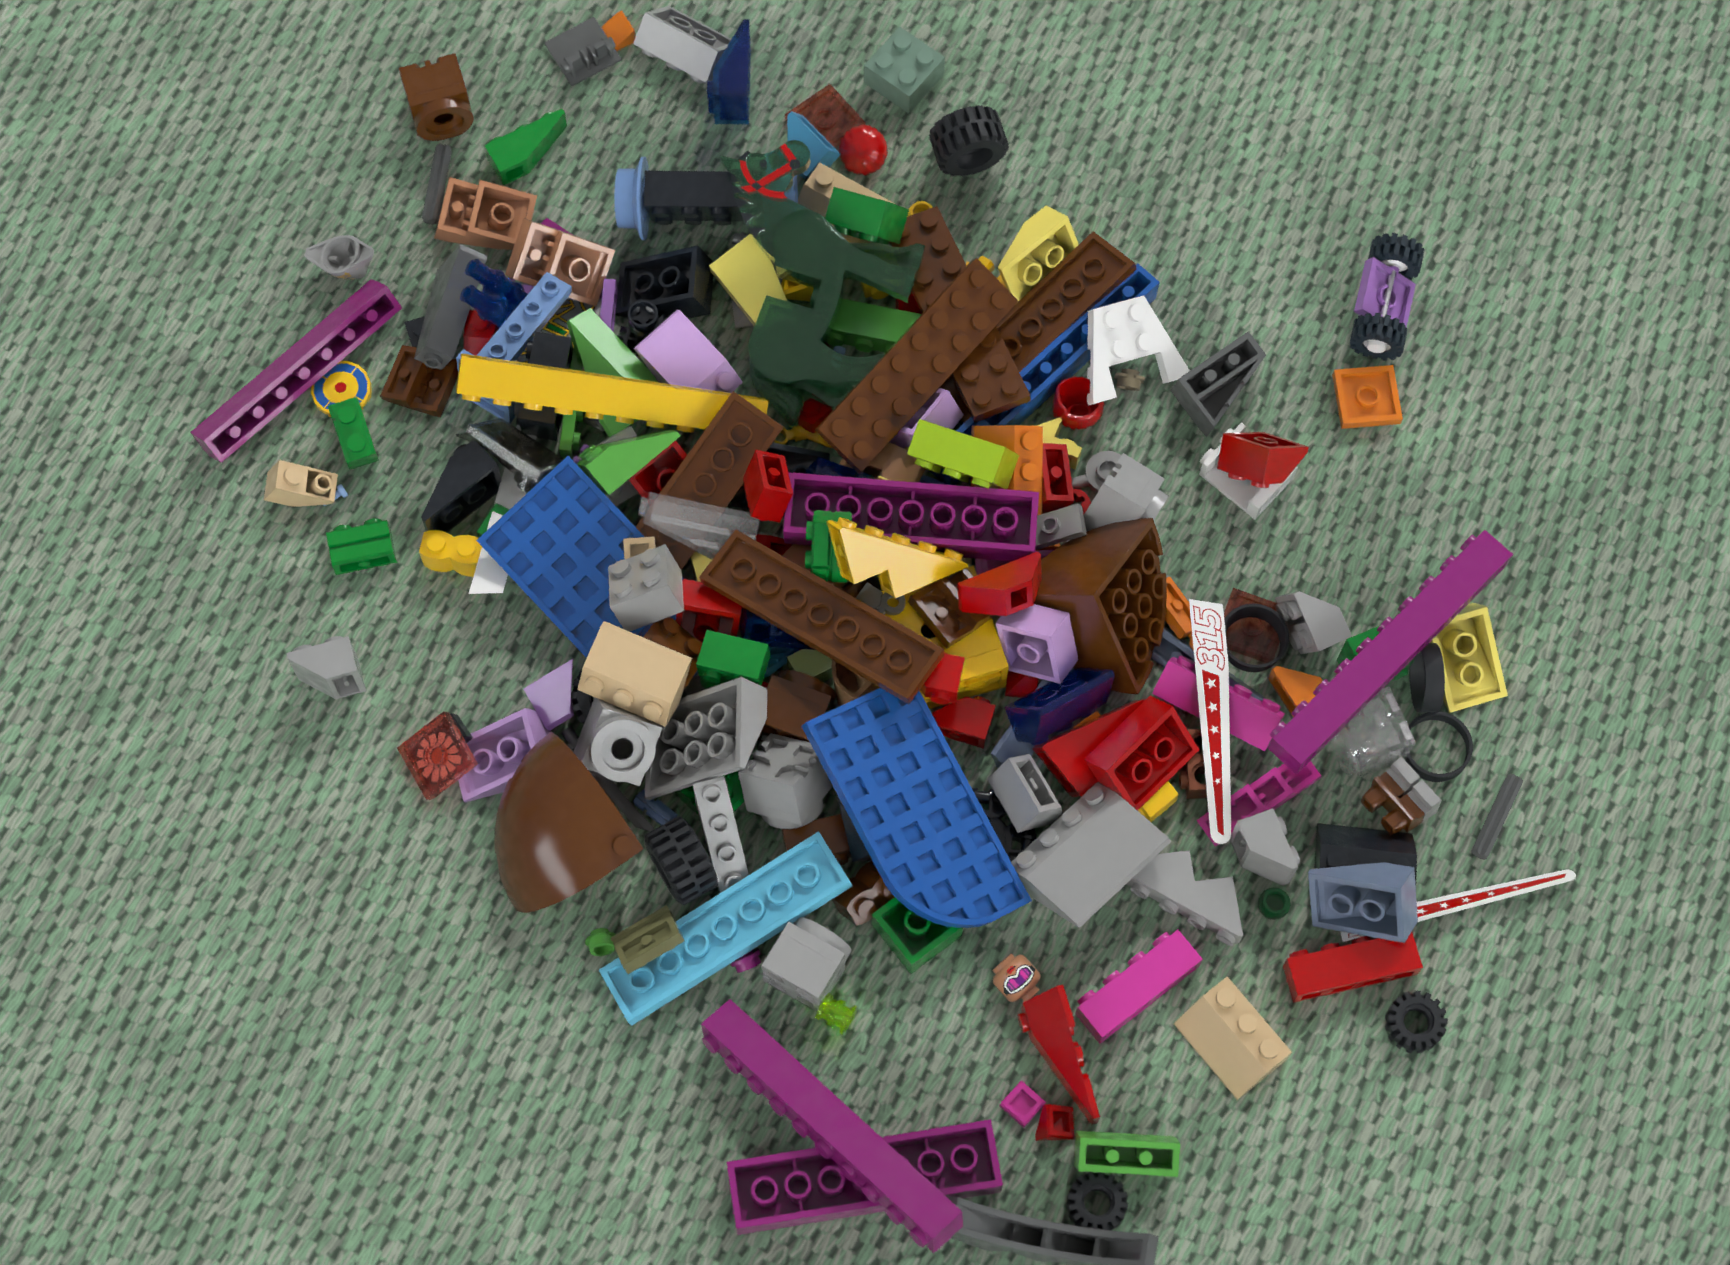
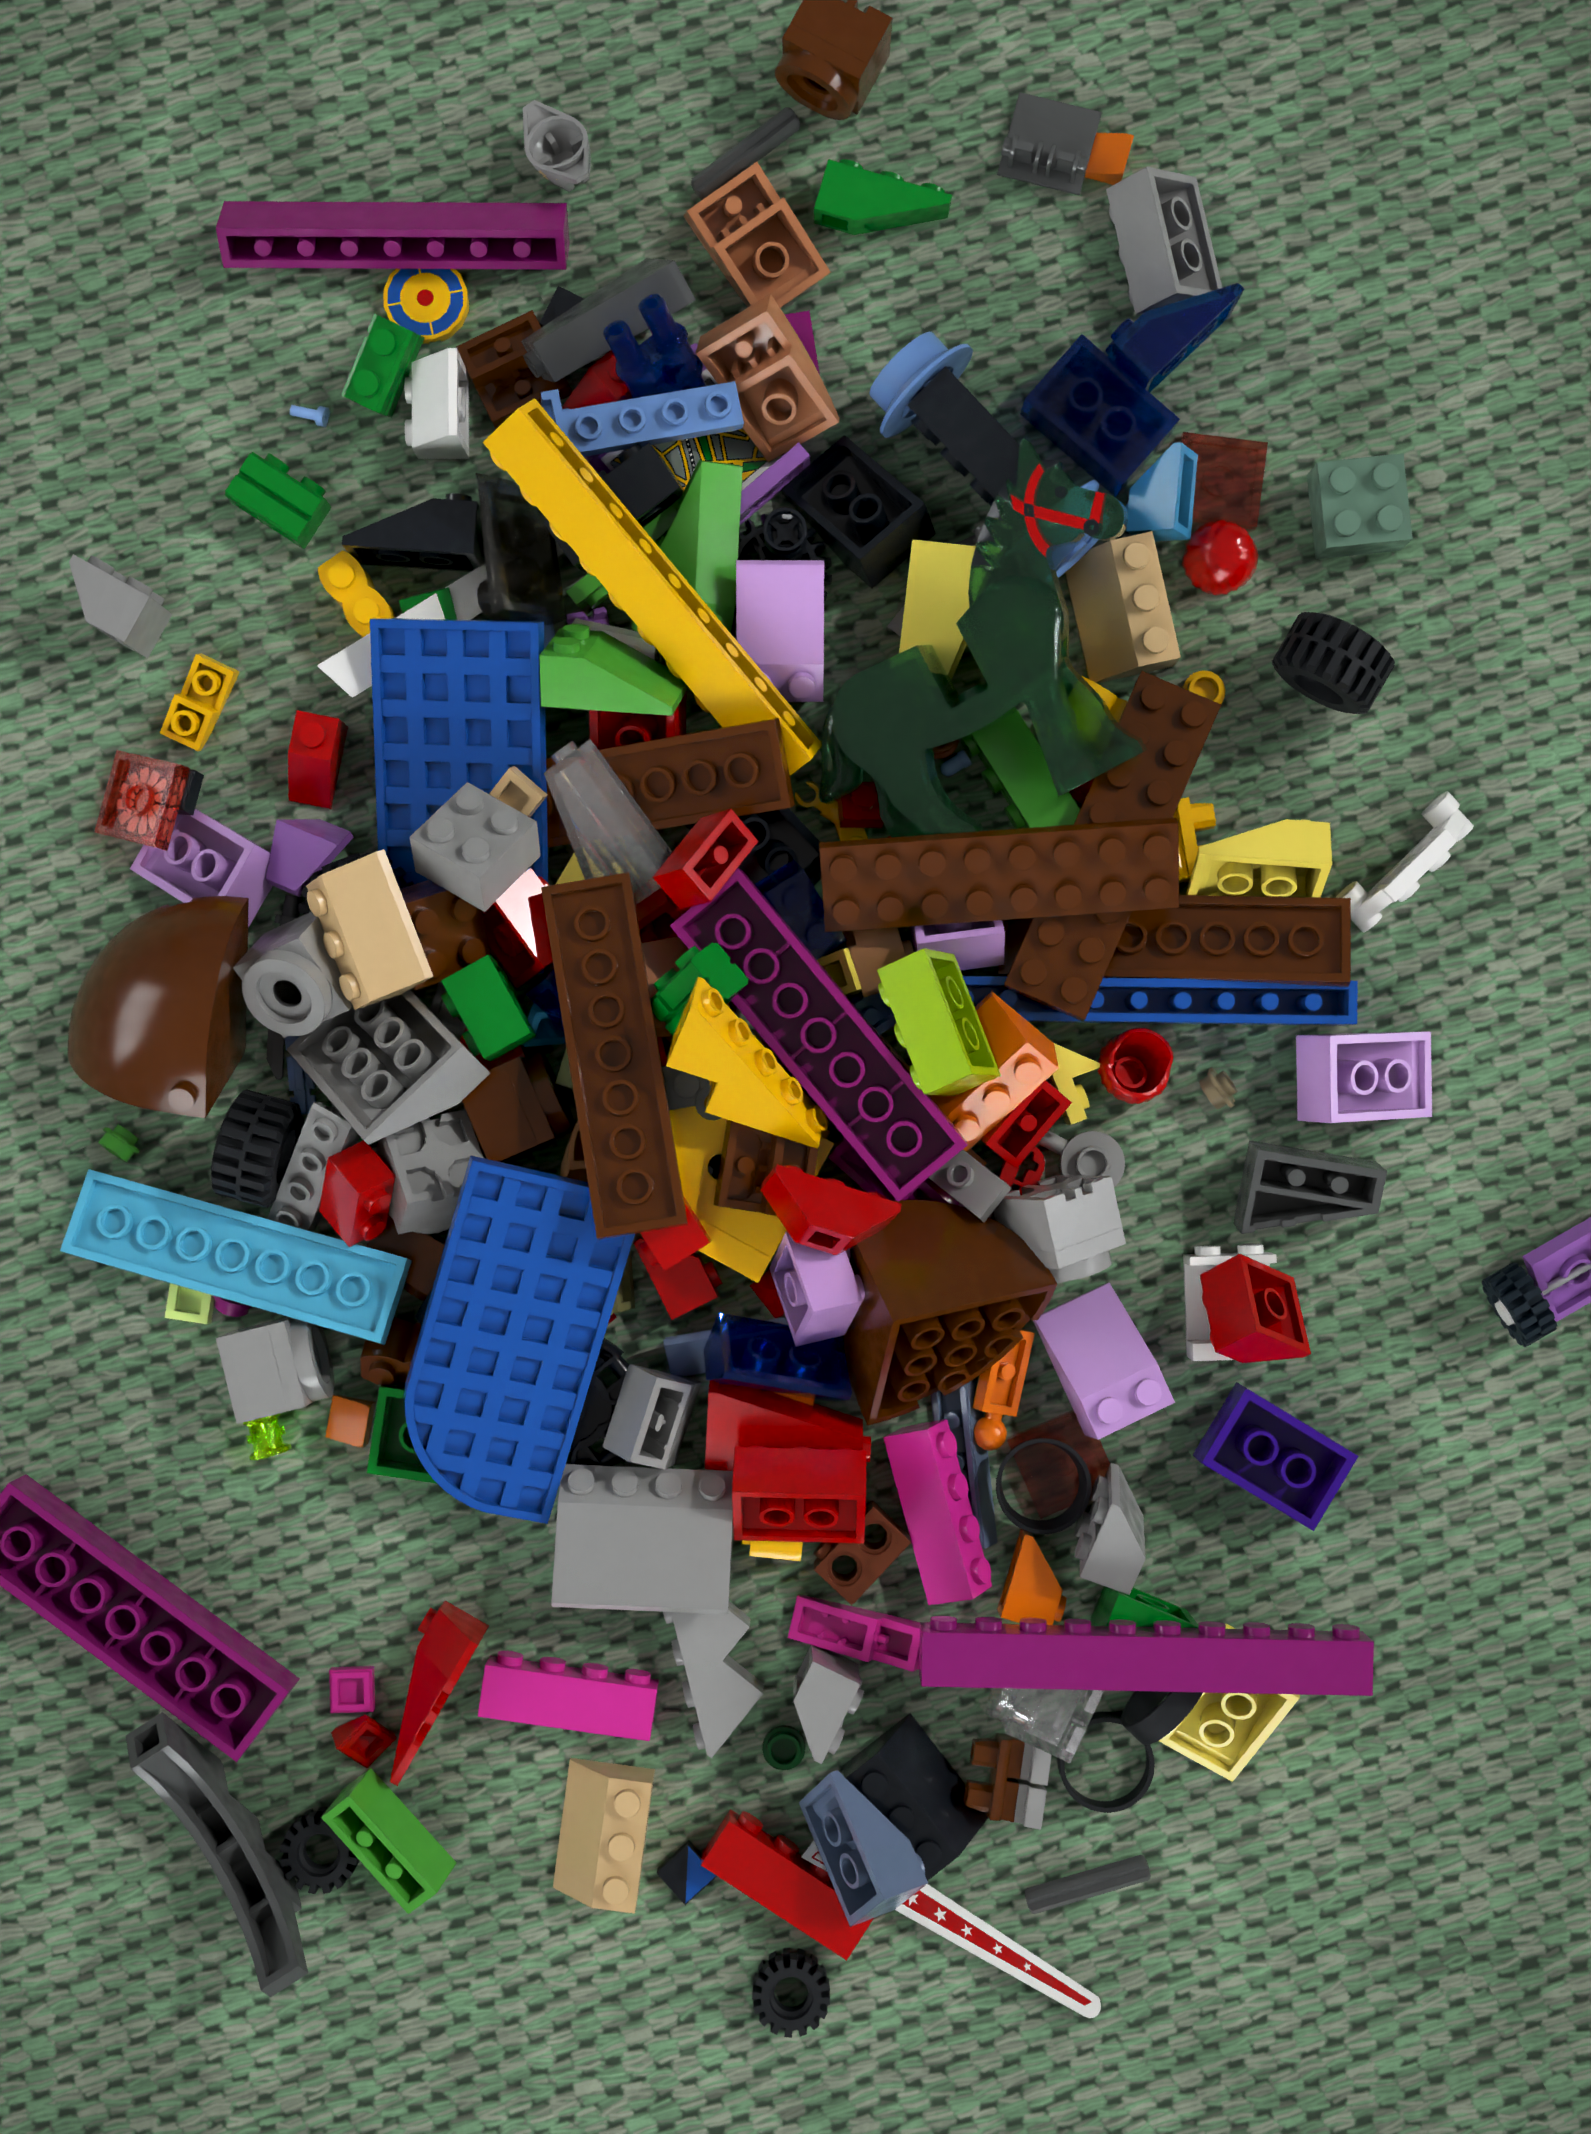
camera: 50 degrees right, 20 degrees up
(299, 485) = (280, 372): tan slope -> none
(402, 425) = (438, 406): none -> white slope
(417, 683) = (200, 702): none -> yellow slope
(509, 650) = (315, 758): none -> red slope
(647, 939) = (149, 1194): olive plate -> none
(724, 985) = (189, 1305): none -> yellowish green plate
(733, 131) = (1098, 415): none -> clear blue brick
(759, 822) = (357, 1193): none -> red brick
(832, 1126) = (130, 1554): magenta brick -> none
(866, 217) = (1122, 651): green brick -> none
(873, 963) = (350, 1420): none -> orange slope
(1016, 978) = (463, 1574): nougat head -> none
(1107, 185) = (1429, 854): none -> white plate
(1123, 334) = (1256, 1045): white wing -> none
(1193, 307) = (1363, 1076): none -> lavender slope
(1213, 700) = (928, 1512): sticker -> none
(1217, 556) = (1102, 1362): none -> lavender slope
(1296, 1018) = (684, 1872): none -> tile
(1347, 515) = (1275, 1456): none -> dark purple brick
(1367, 396) = (1439, 1349): orange plate -> none

